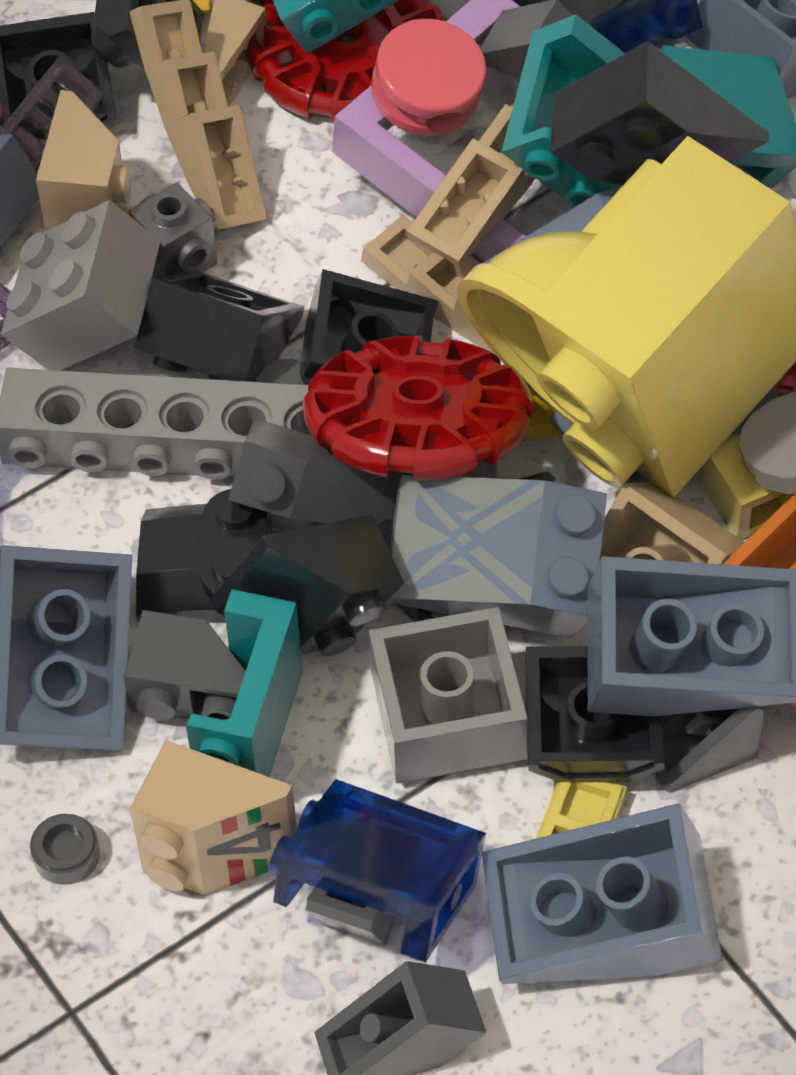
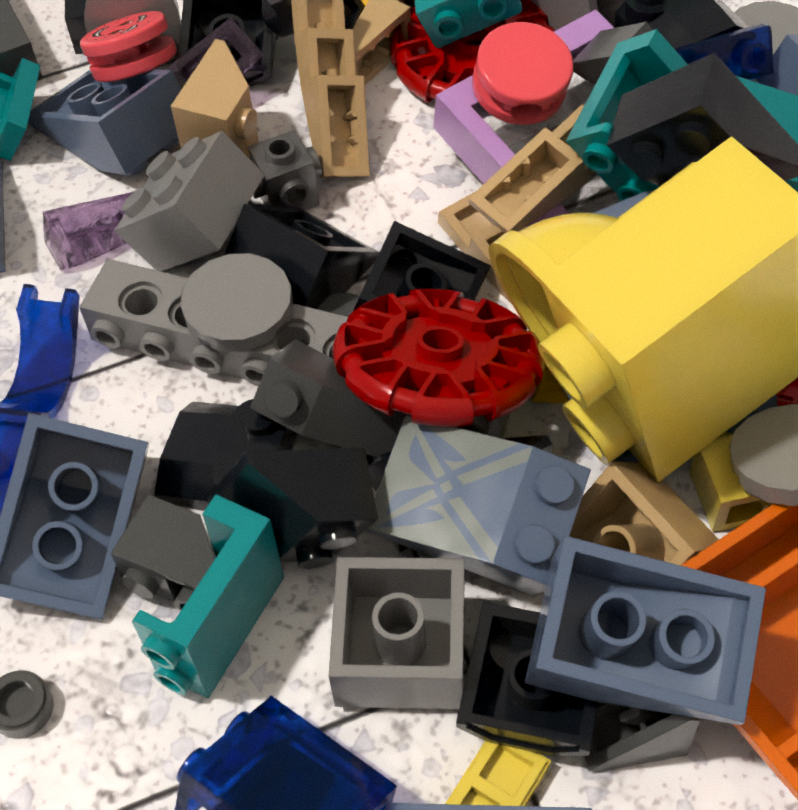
camera: 15 degrees right, 0 degrees up
(175, 389) = (237, 302): none -> light grey tile
(208, 821) = (131, 712): tan slope -> none

